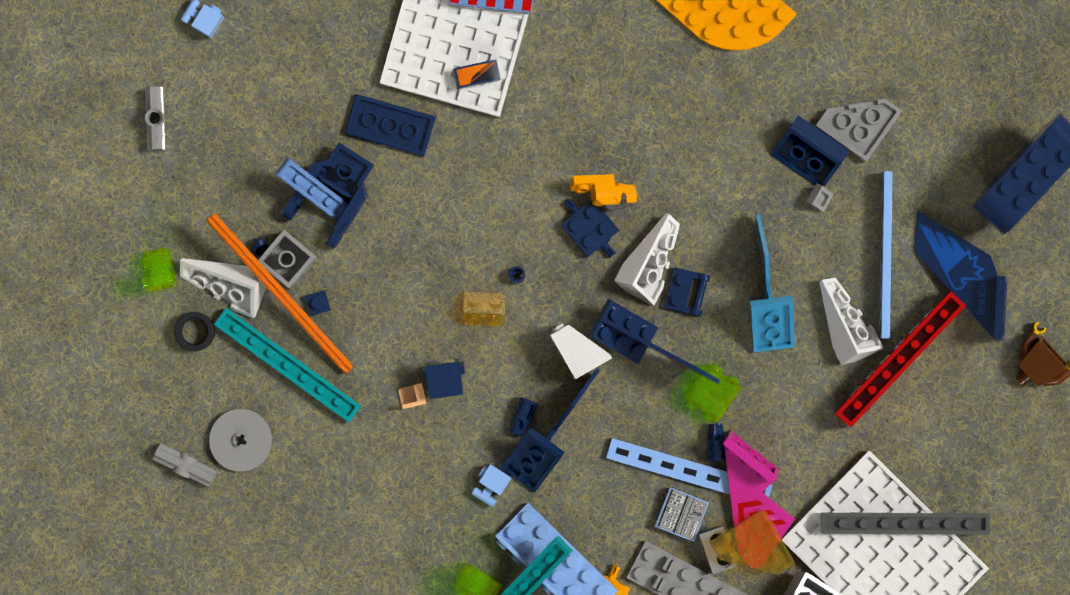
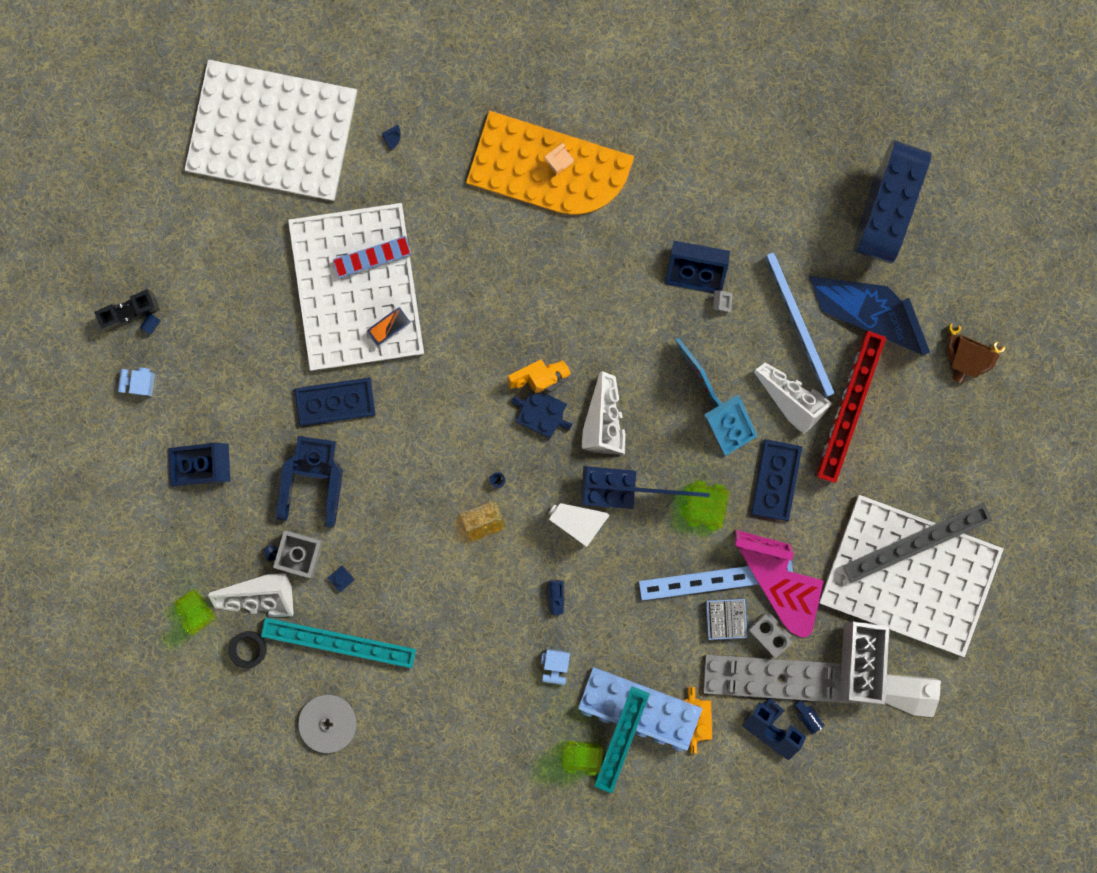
camera: 25 degrees left, 0 degrees up
(155, 132) = (129, 473): light grey piece -> none
(185, 465) = (289, 766): light grey piece -> none
(228, 127) = (199, 464): none -> dark blue slope
(279, 293) = (303, 585): orange axle -> none
(311, 188) = (291, 485): medium blue tile -> none
(412, 396) = (456, 621): light nougat panel -> none
(444, 378) = (476, 595): dark blue plate -> none
(535, 454) = (581, 625): dark blue piece -> none
(680, 290) = (640, 430): dark blue plate -> none
(715, 442) = (727, 546): dark blue hinge -> none
(754, 545) = (799, 618): clear yellow plate -> none
(793, 399) = (776, 480): none -> dark blue tile
(859, 125) = (728, 226): light grey plate -> none

